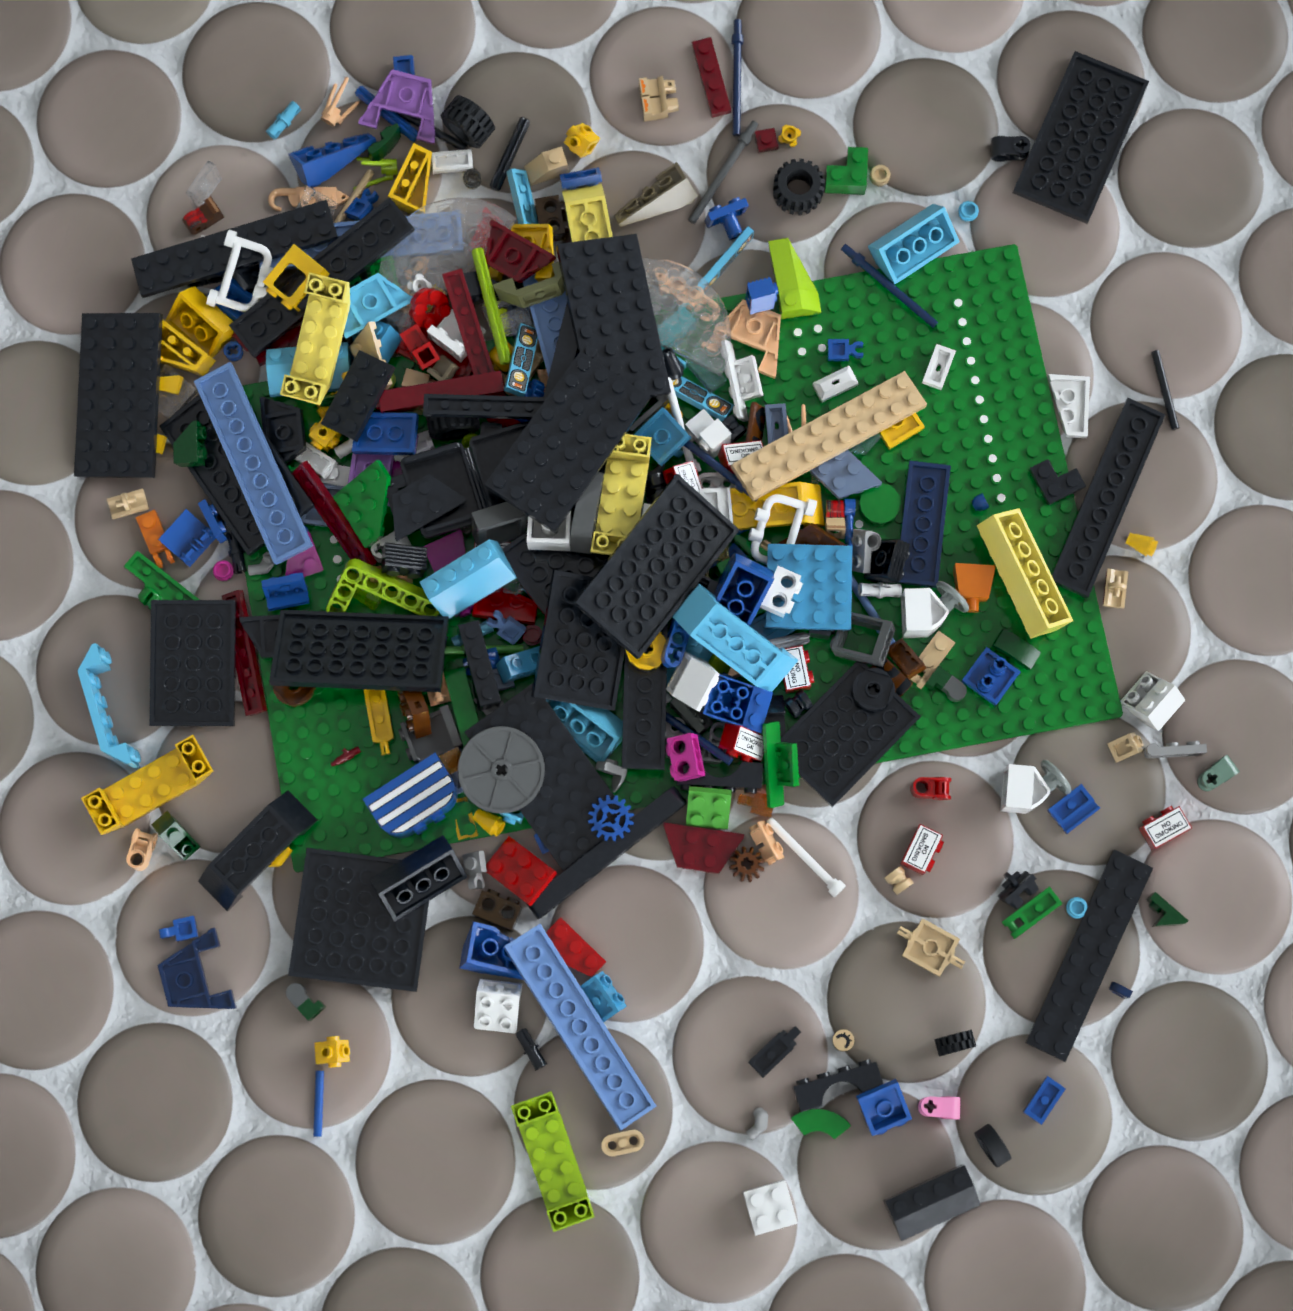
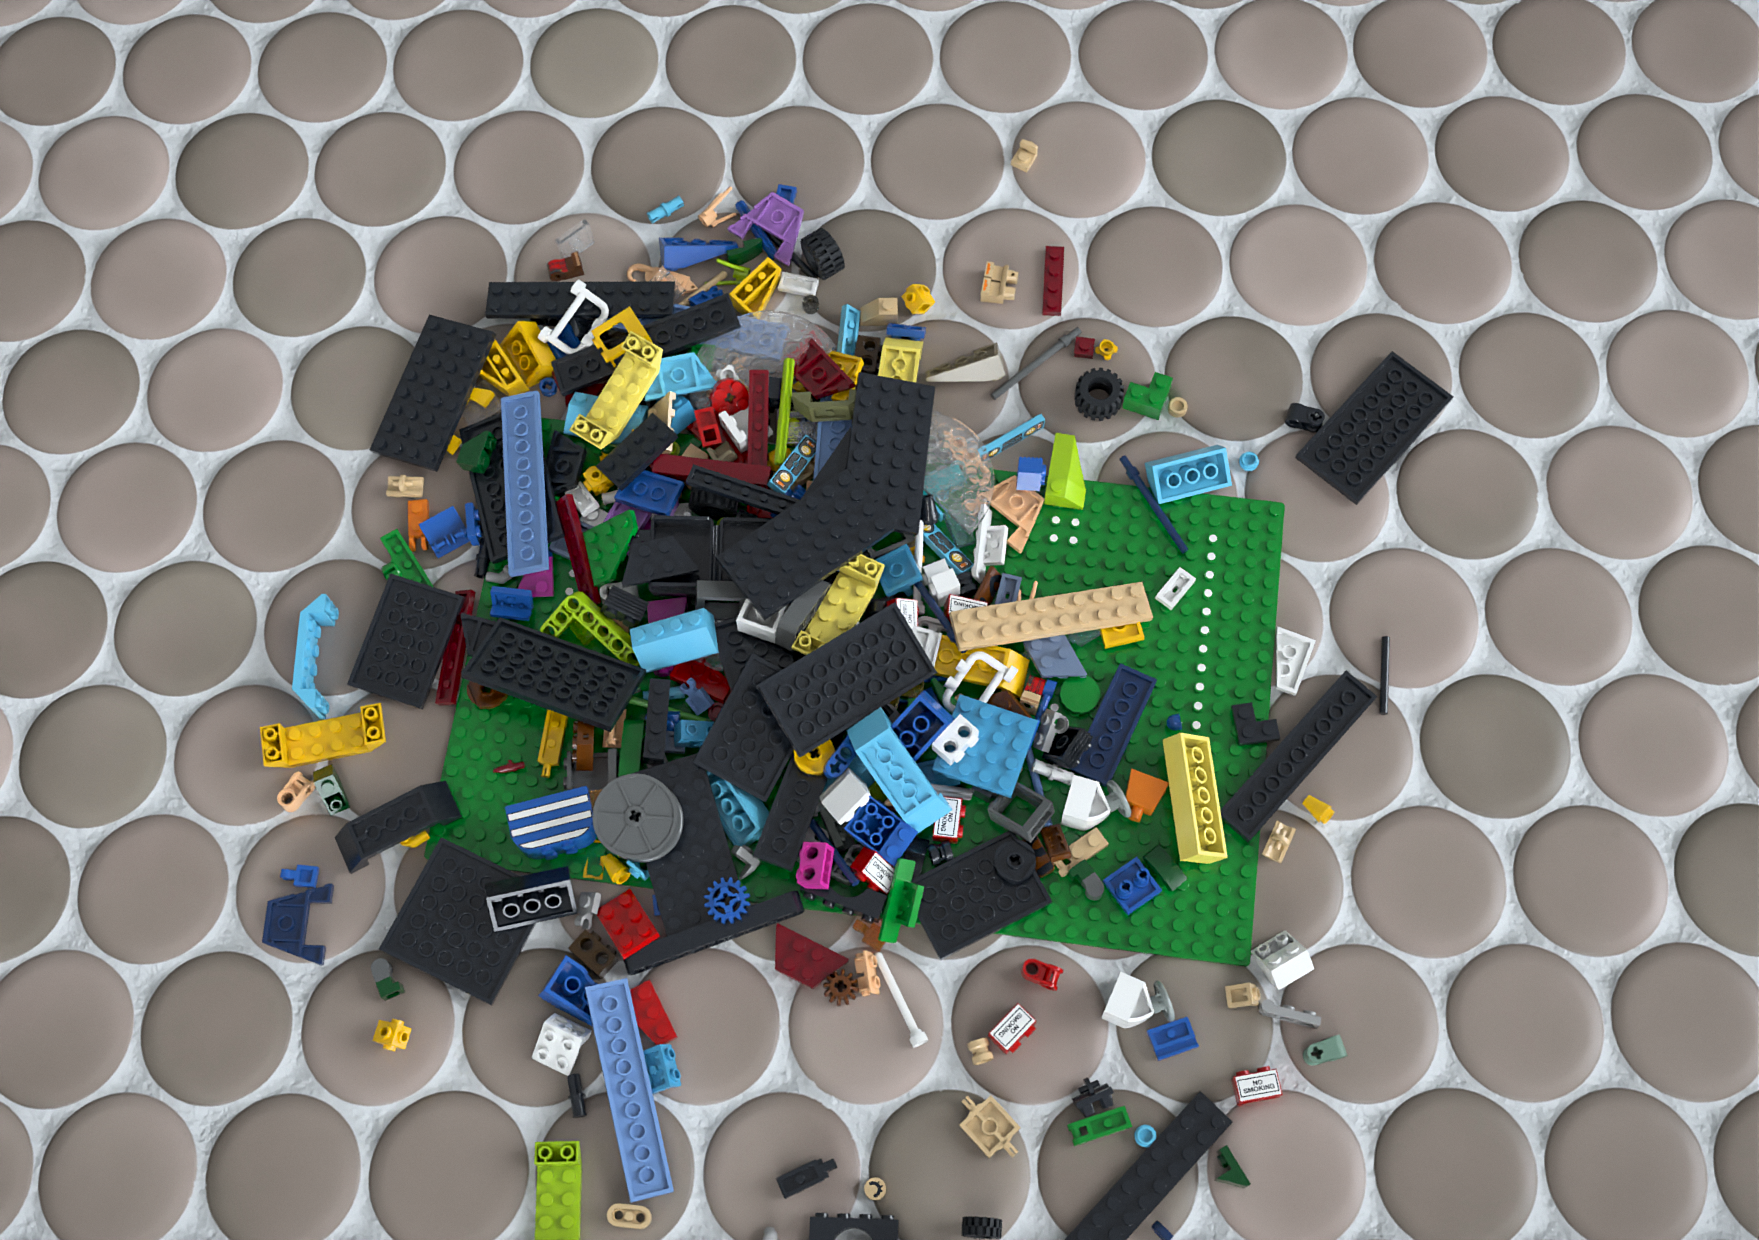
camera: 20 degrees right, 10 degrees down
(223, 570) = (465, 570): dark pink plate -> none
(318, 1104) = (362, 1080): blue bar -> none
(509, 154) = (851, 293): black axle -> none
(708, 807) = (823, 922): bright green plate -> none
(728, 216) = (1025, 399): blue plate -> none
(737, 41) = (1086, 257): dark blue bar -> none
(826, 390) = (1064, 578): white piece -> none
(840, 350) = (1089, 546): blue plate -> none

